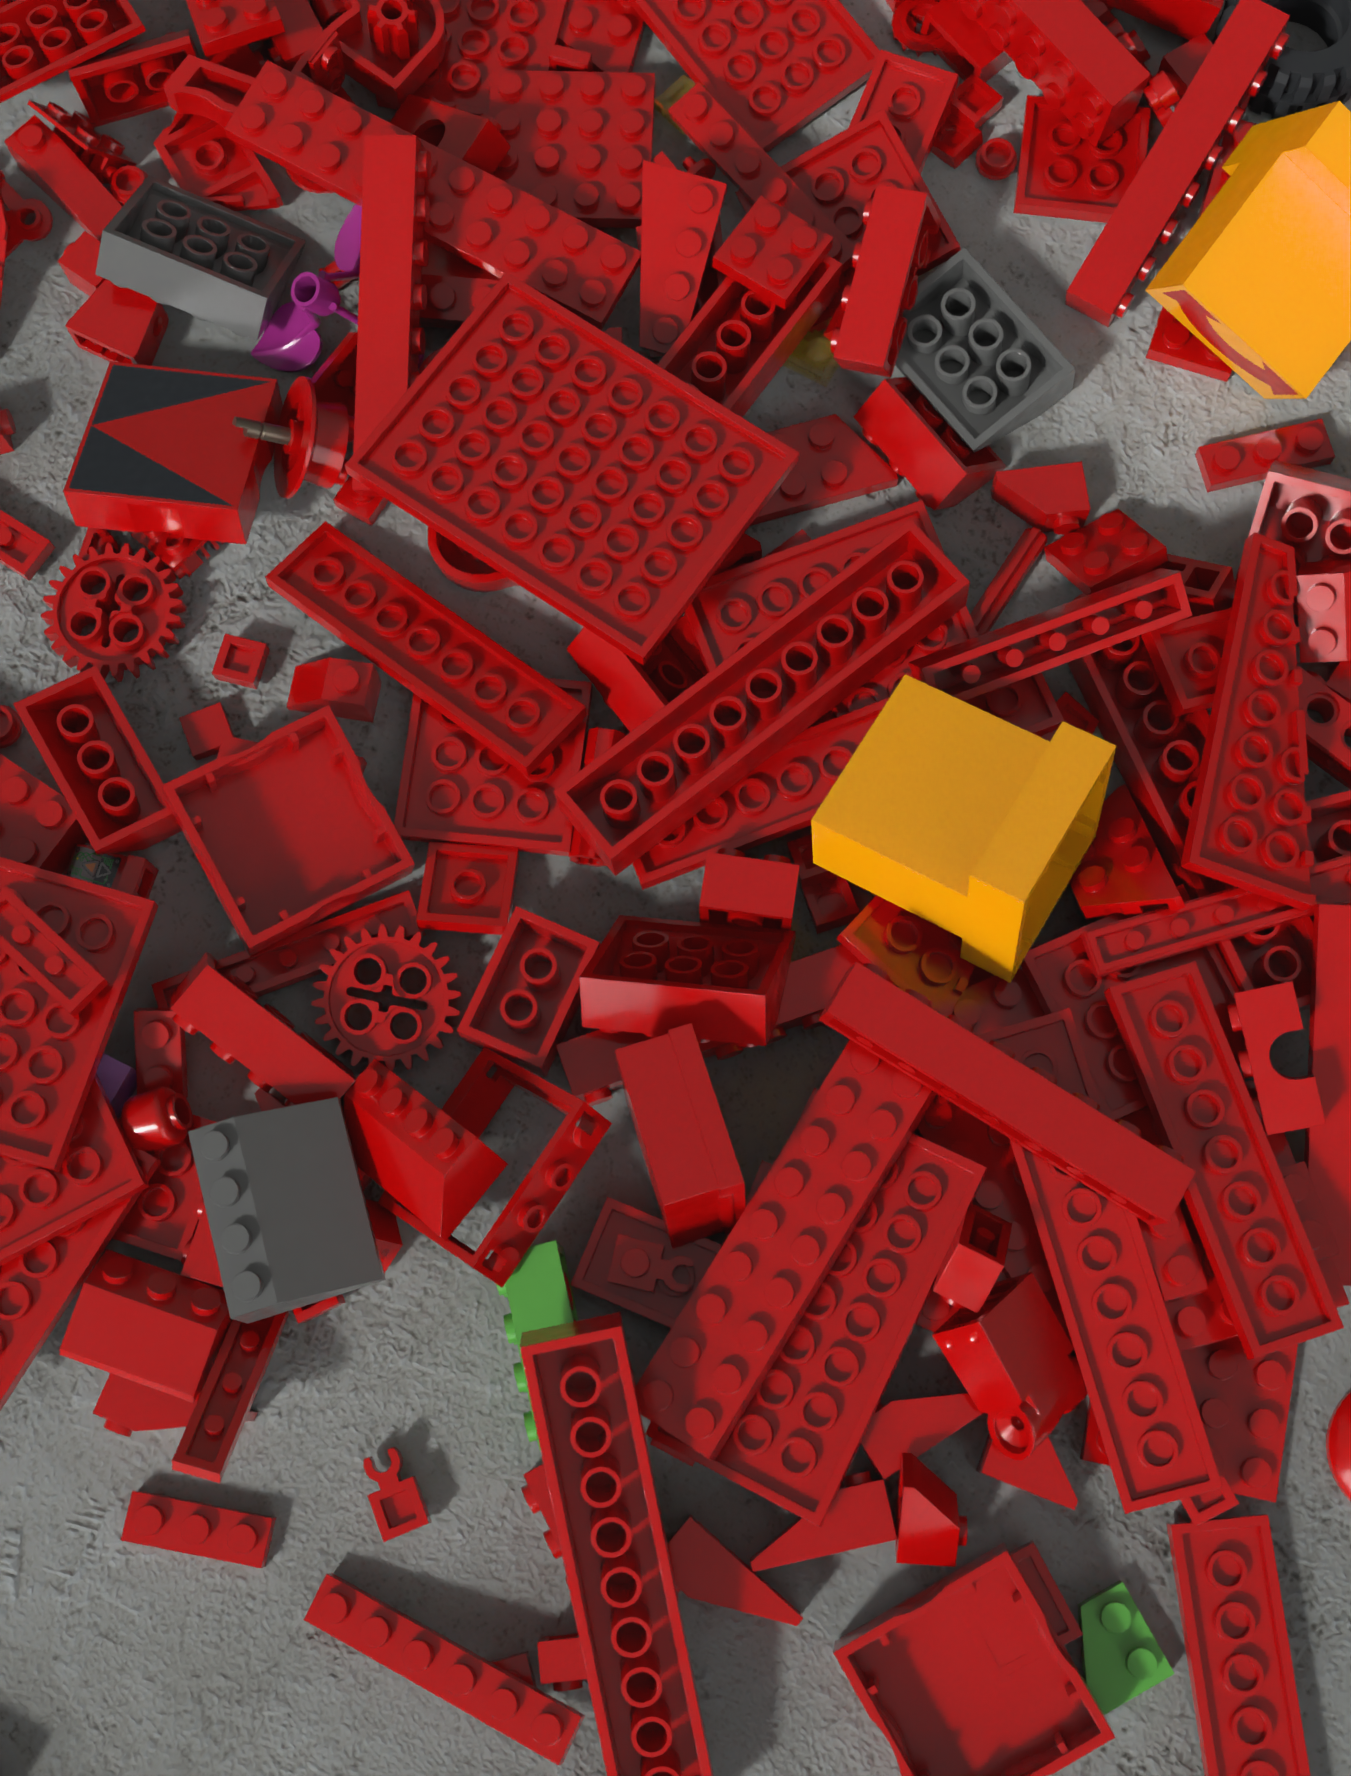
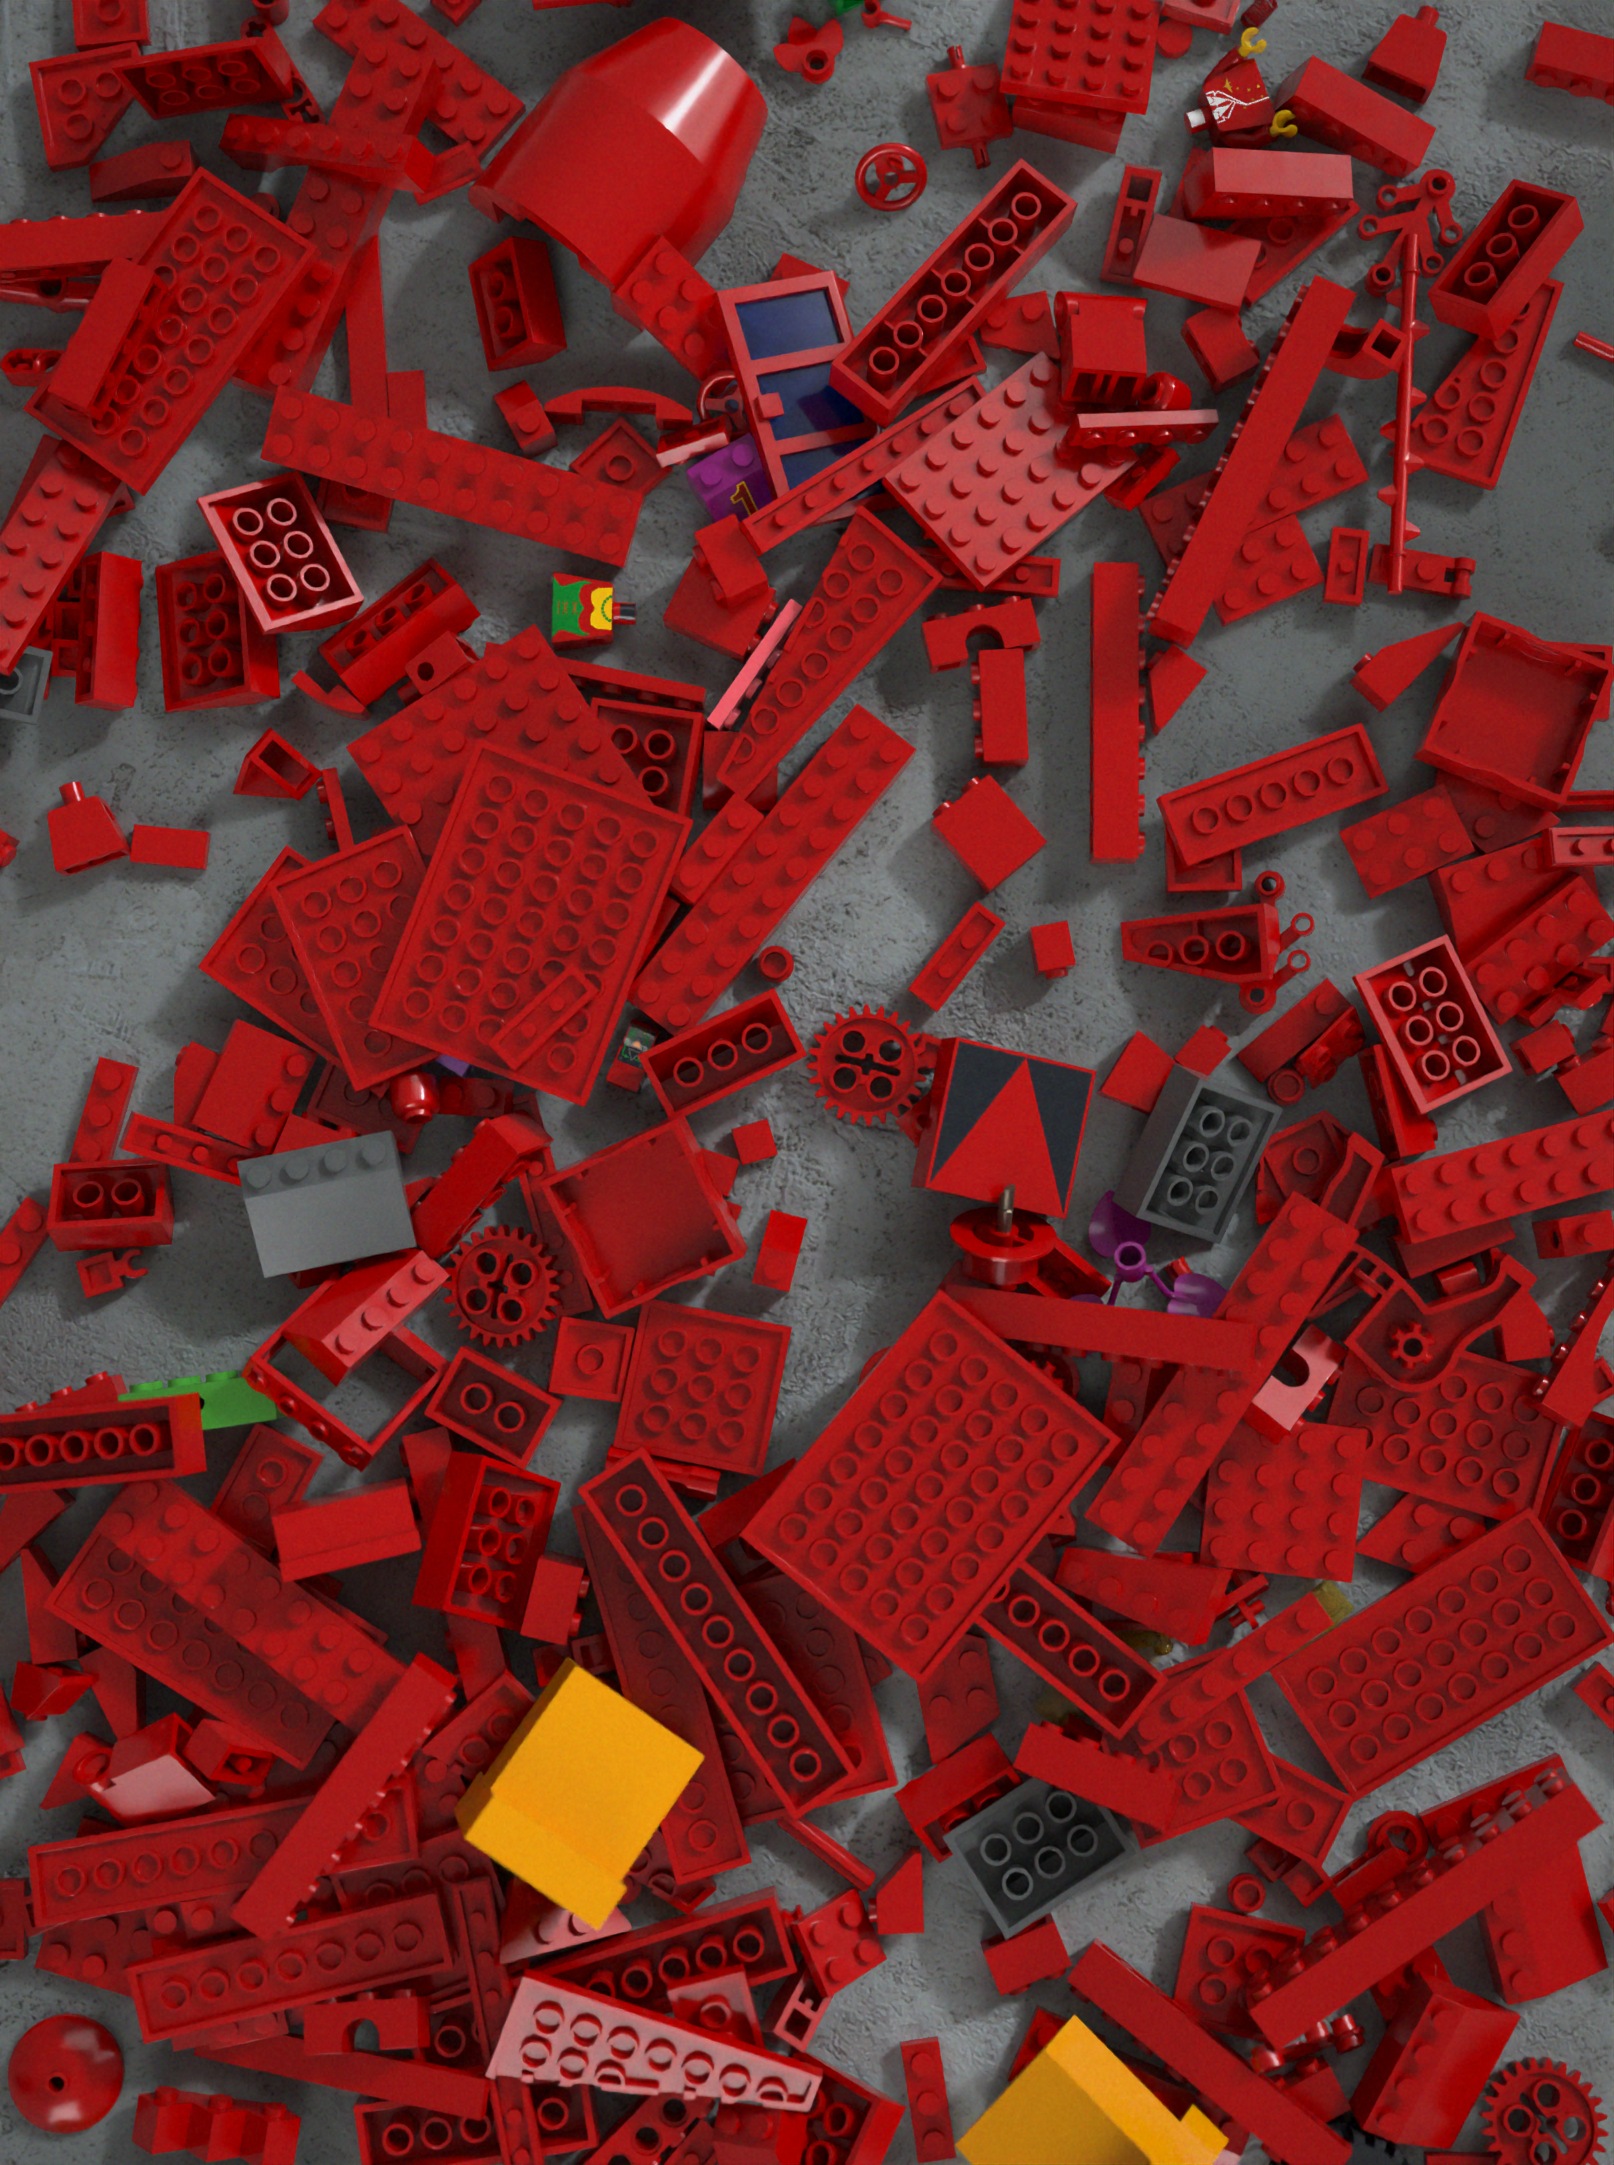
camera: 90 degrees right, 10 degrees up
(241, 661) = (813, 1173): red plate -> none
(307, 1500) = (111, 1204): none -> red slope
(427, 648) = (803, 1336): red plate -> none
(569, 59) = (1373, 1502): red tile -> none
(640, 1265) = (264, 1481): red plate -> none
(772, 252) = (1132, 1679): red plate -> none
(1056, 636) = (741, 1885): red brick -> none
(1101, 369) = (1026, 1956): none -> red brick

